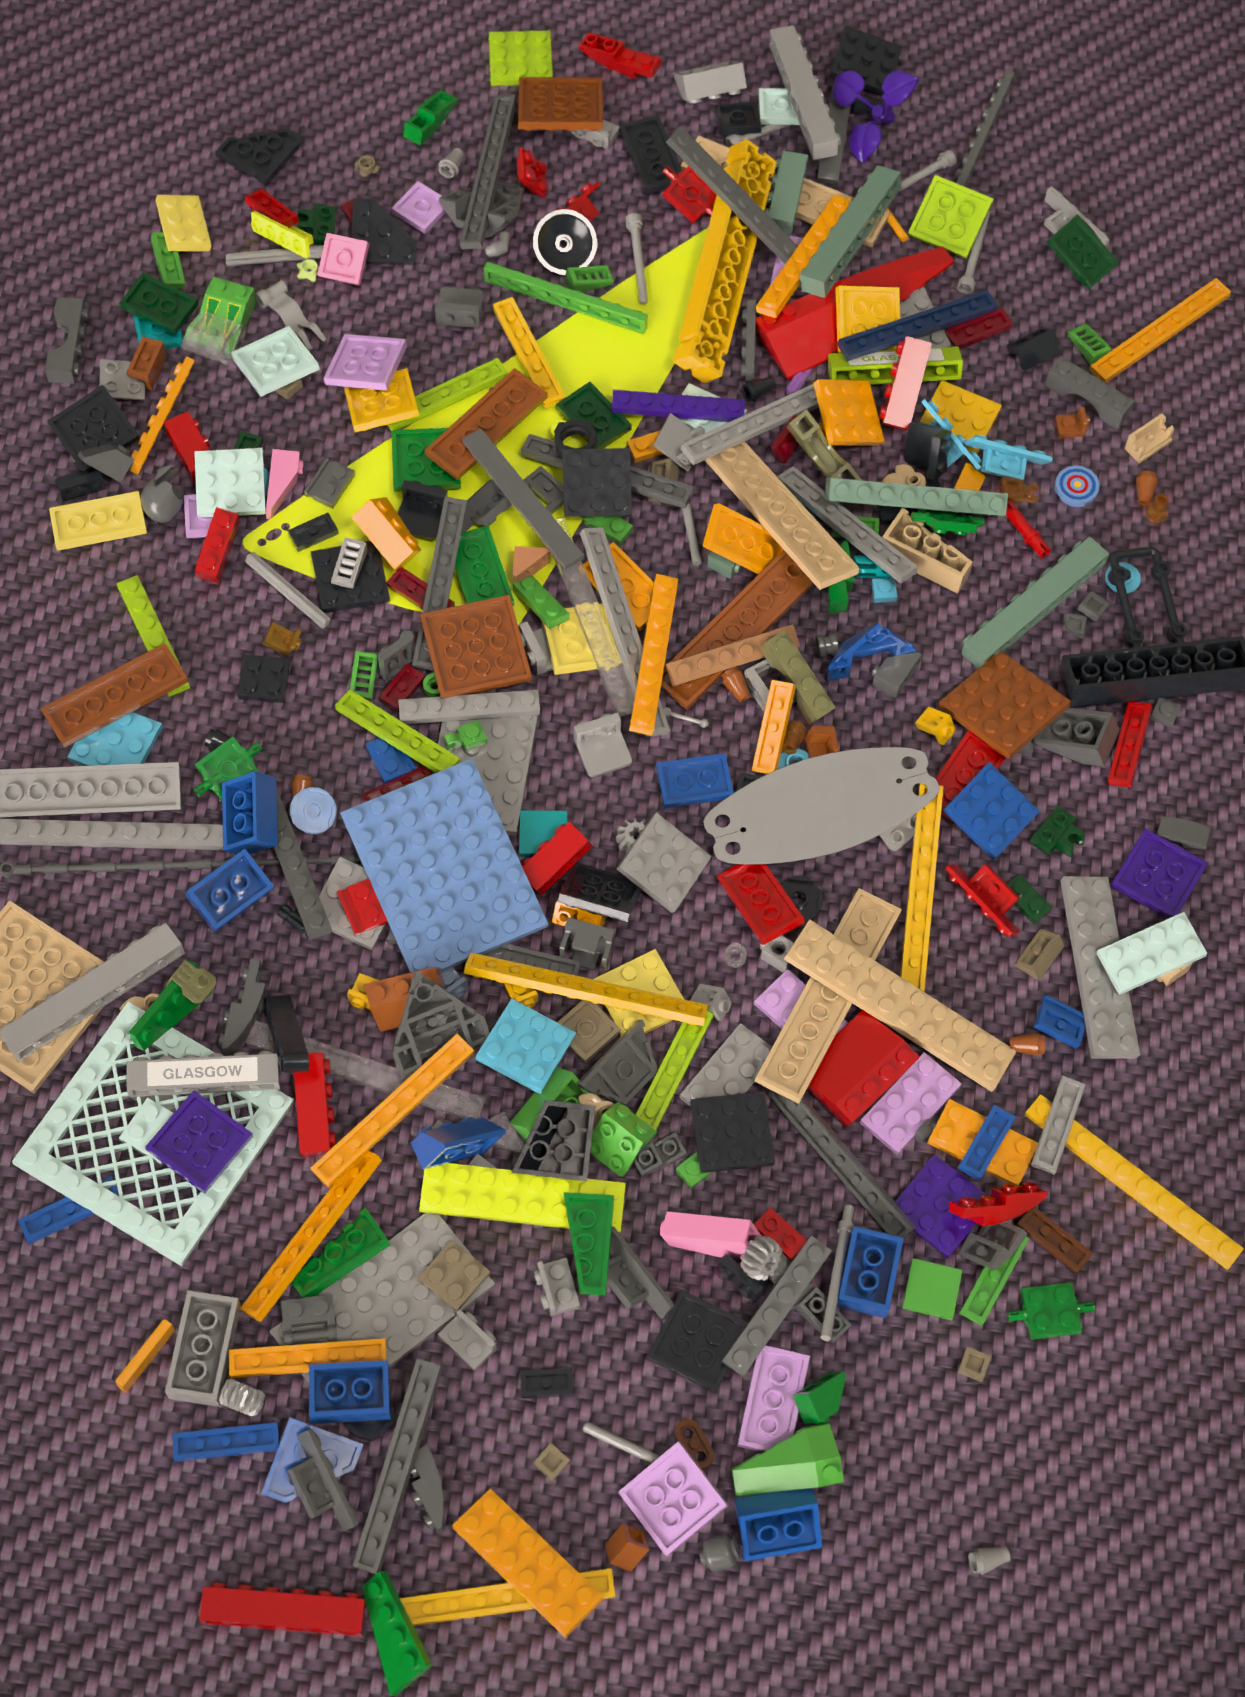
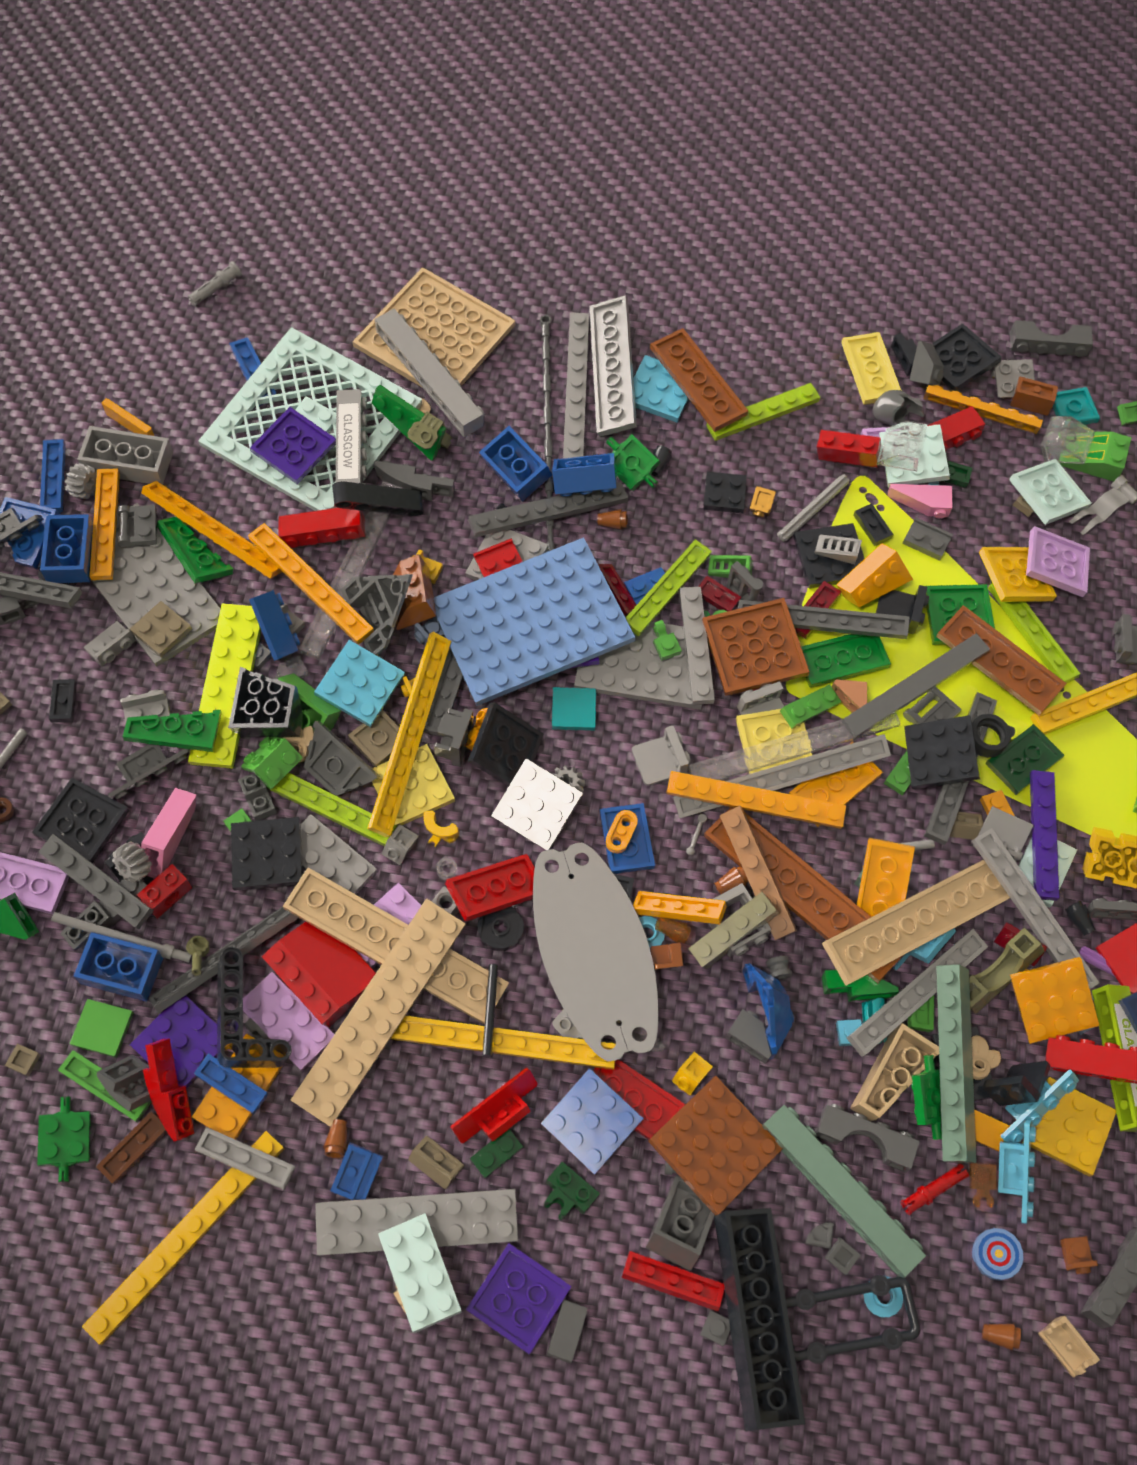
camera: 90 degrees right, 0 degrees up
(158, 303) = (1098, 401): dark green plate -> none
(226, 486) = (903, 446): none -> clear slope
(312, 810) = (594, 525): medium blue tile -> none
(485, 506) = (910, 658): dark grey bracket -> none
(555, 857) = (543, 712): red brick -> none
(687, 968) = (447, 833): none -> yellow piece
(695, 778) = (621, 832): none -> light orange plate
(840, 1196) = (198, 948): none -> olive plate
(892, 899) = (490, 1011): none -> black bar
(922, 1141) = (235, 1019): none -> black beam
(993, 559) = (896, 1148): none -> dark grey arch
(1158, 509) = (968, 1348): clear orange cone -> none

